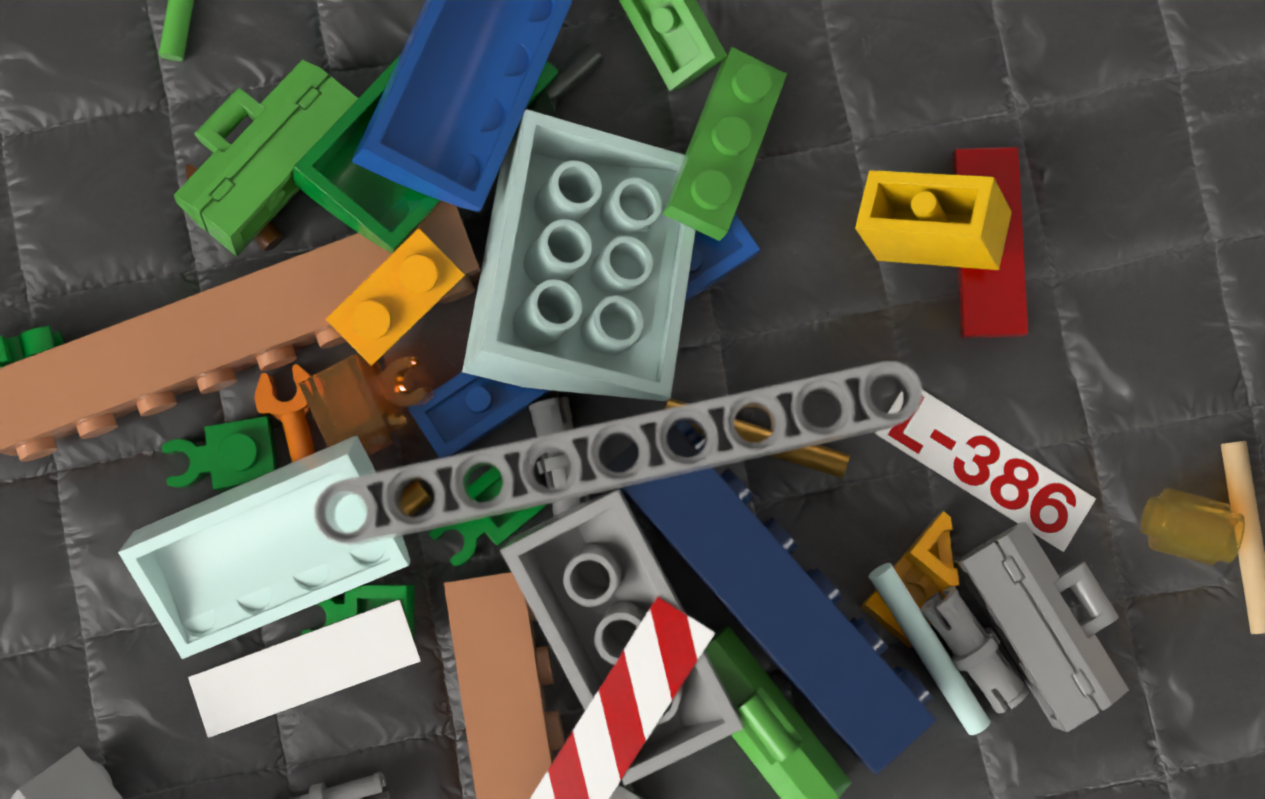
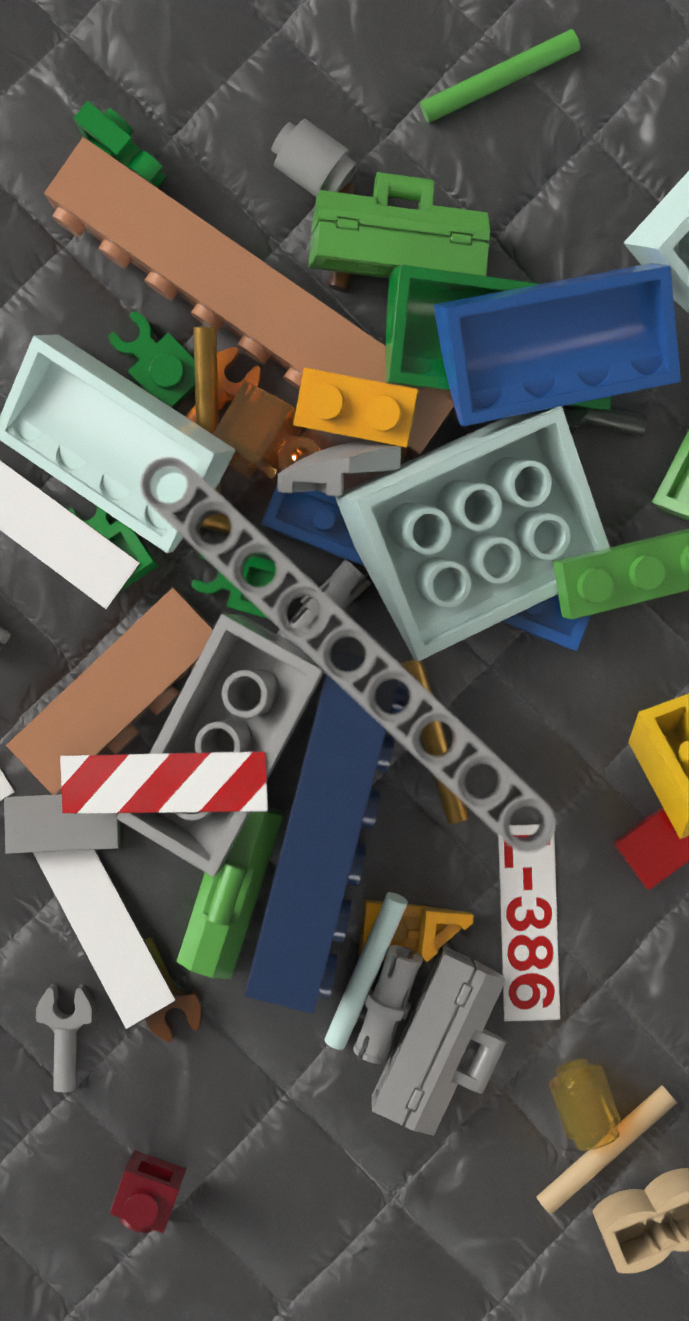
camera: 50 degrees right, 5 degrees up
(139, 184) = (312, 158): none -> light grey brick
(271, 418) = (206, 380): none -> pearl gold bar
(433, 362) = (326, 468): none -> light grey slope

